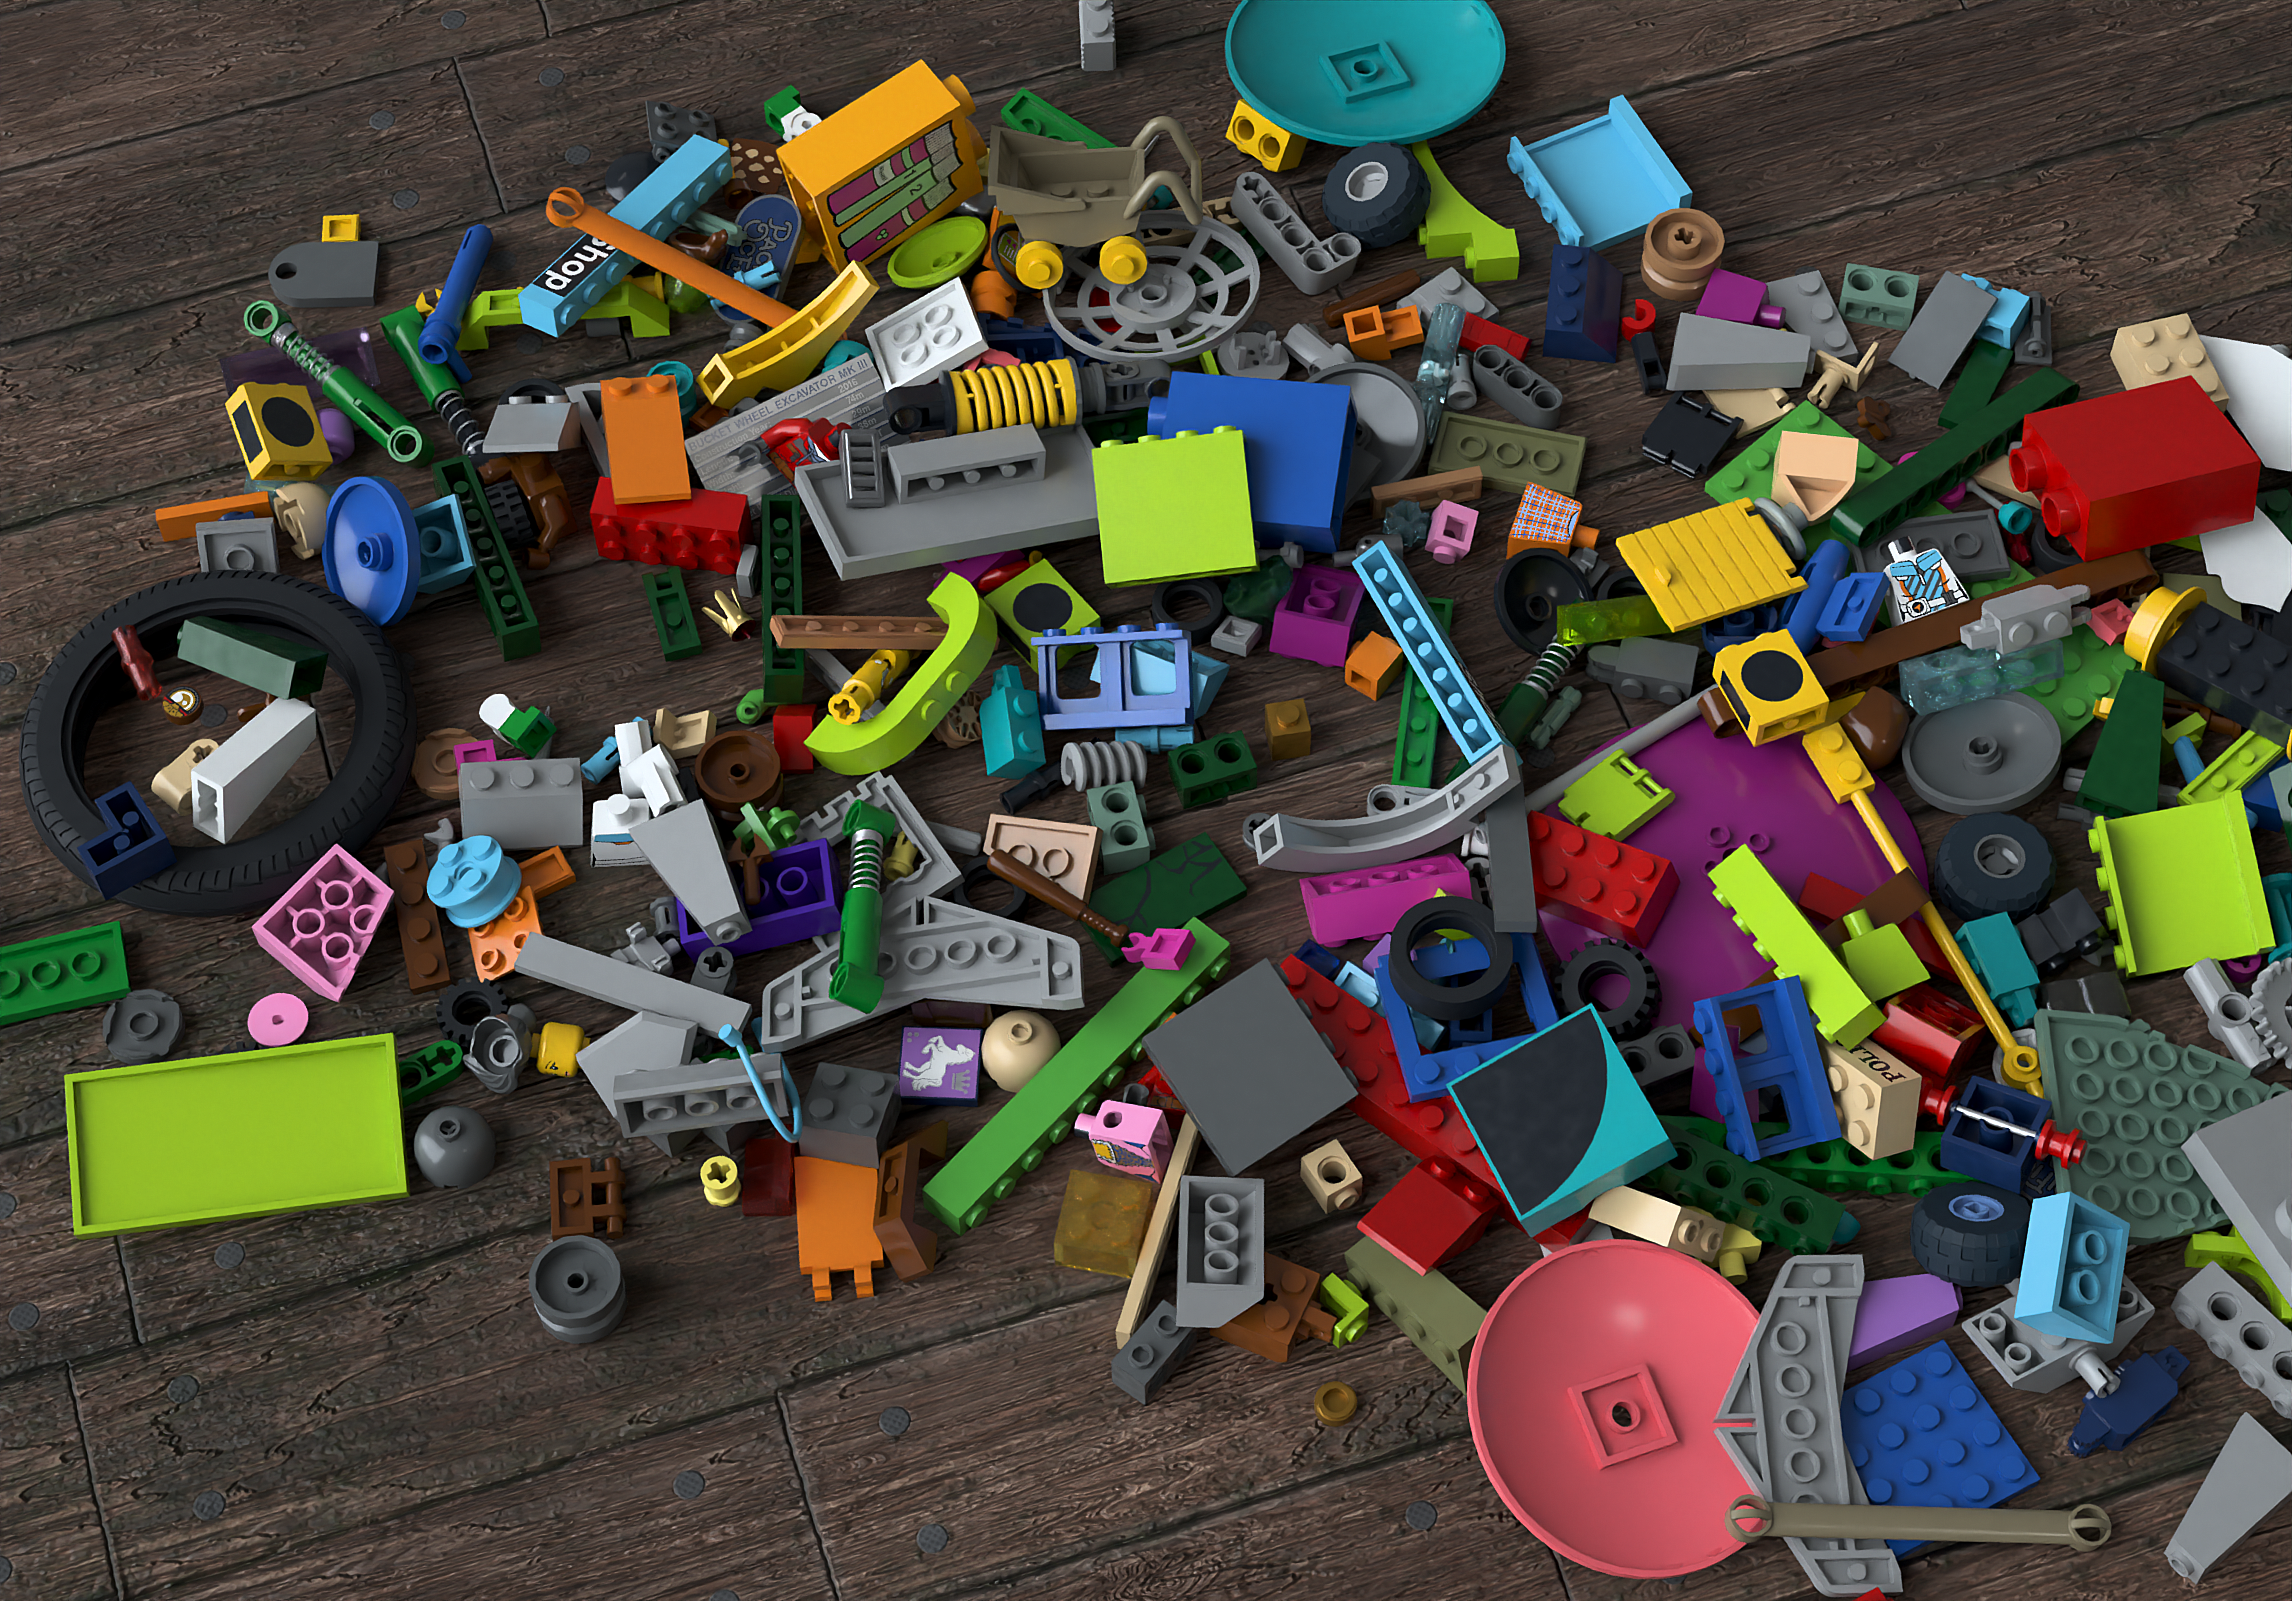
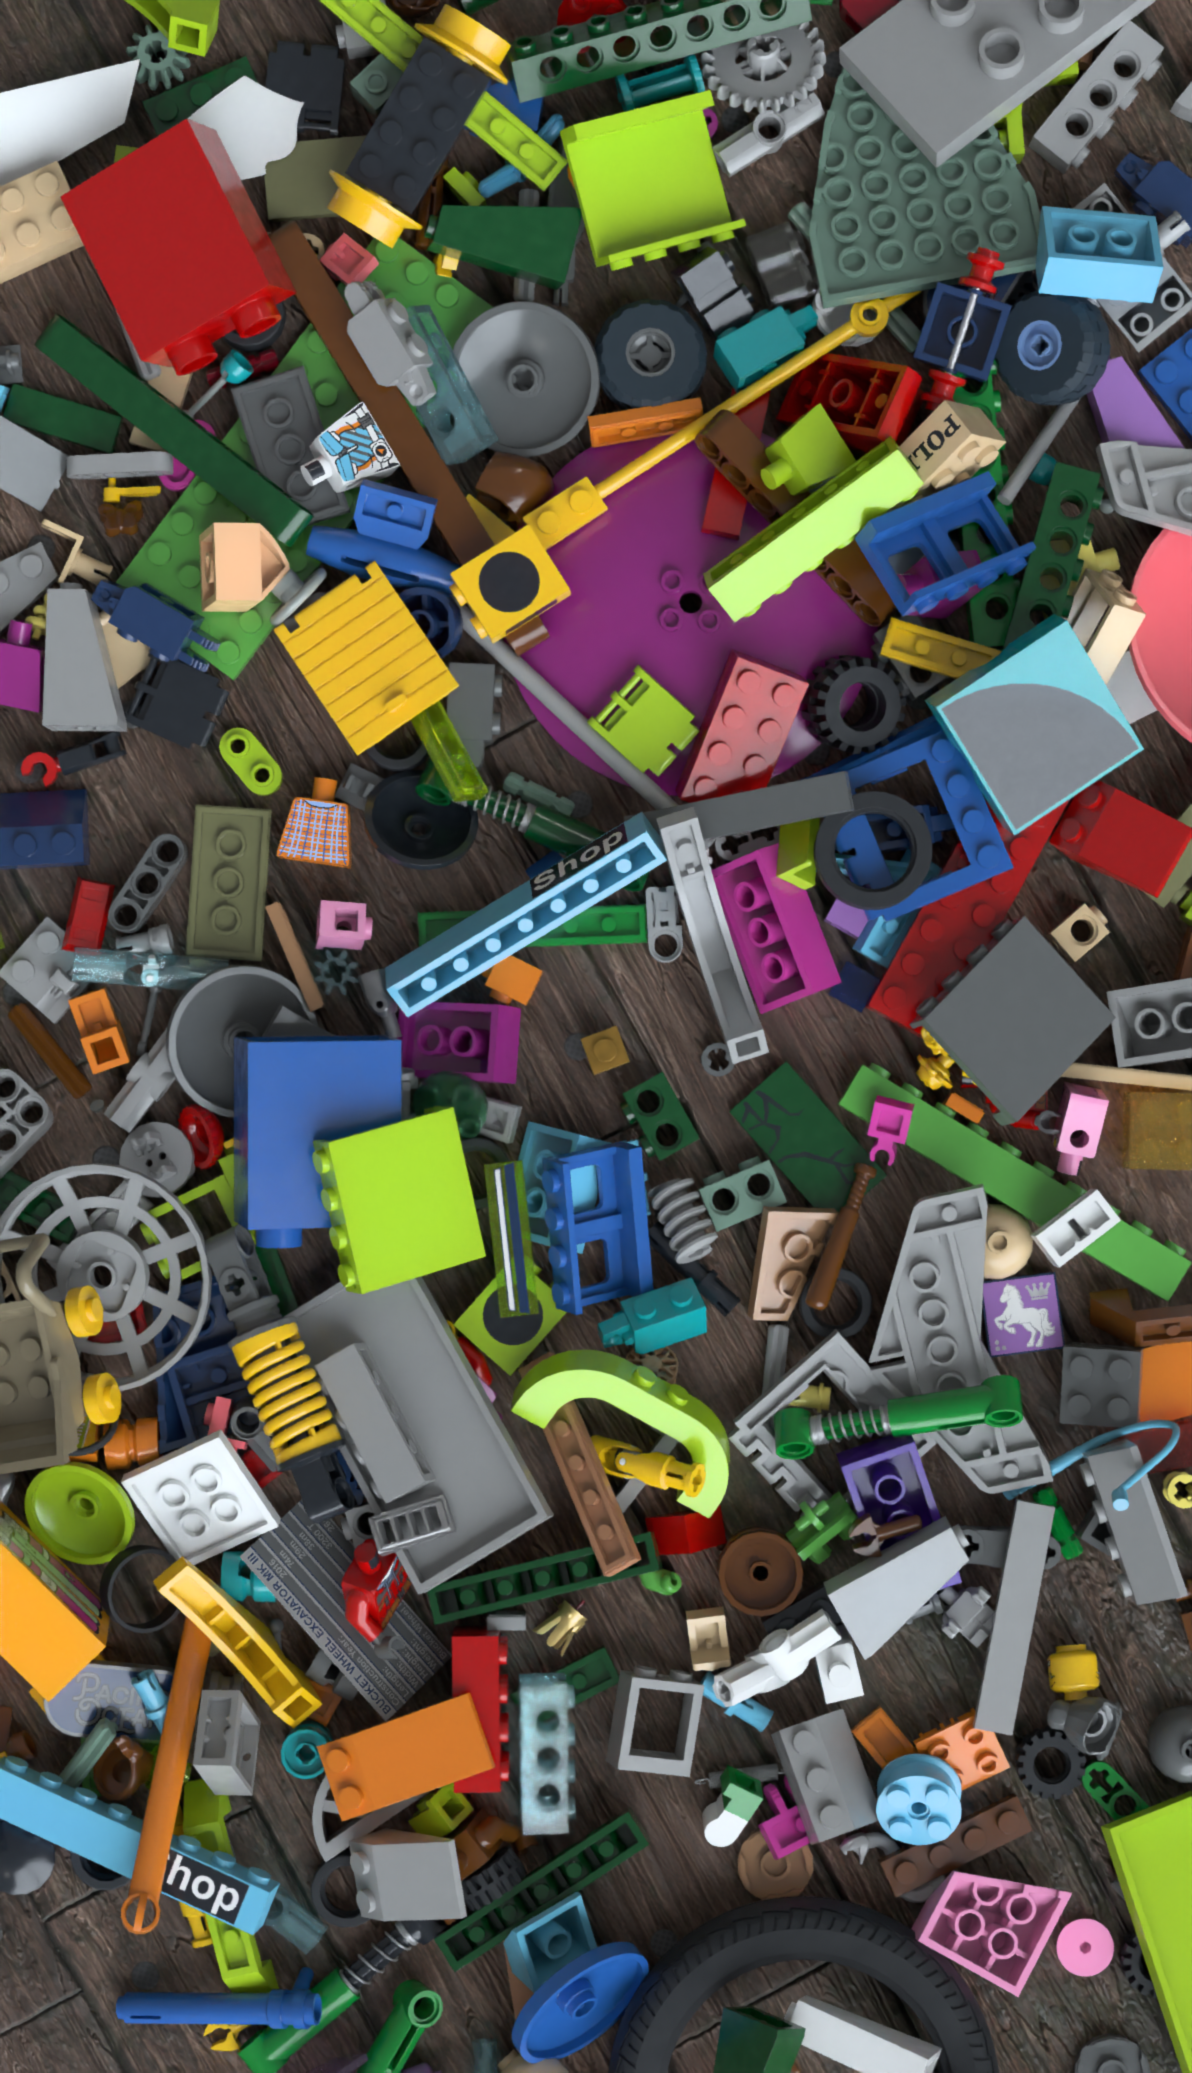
camera: 100 degrees left, 30 degrees up
(531, 358) = (295, 1922): none -> clear light blue piece
(580, 485) = (440, 1812): none -> lime brick
(582, 659) = (619, 1751): none -> light grey window
(596, 565) = (538, 1812): none -> clear light blue brick
(642, 1042) = (1084, 1594): light grey tile -> none
(708, 297) = (224, 1735): none -> light grey window
(841, 257) = (106, 1586): none -> black tyre
(1020, 1093) = (1075, 1227): none -> white brick
(1109, 610) = (511, 1239): none -> tile
(1625, 488) = (251, 761): none -> lime plate
(1661, 1060) = (933, 649): none -> yellow tile
(1760, 420) = (156, 621): none -> dark blue hinge
(1864, 1216) = (1035, 452): none -> light grey bar
(1898, 417) = (112, 493): none -> yellow piece
(1925, 412) = (119, 465): none -> light grey beam
(1927, 847) = (643, 422): none -> orange tile

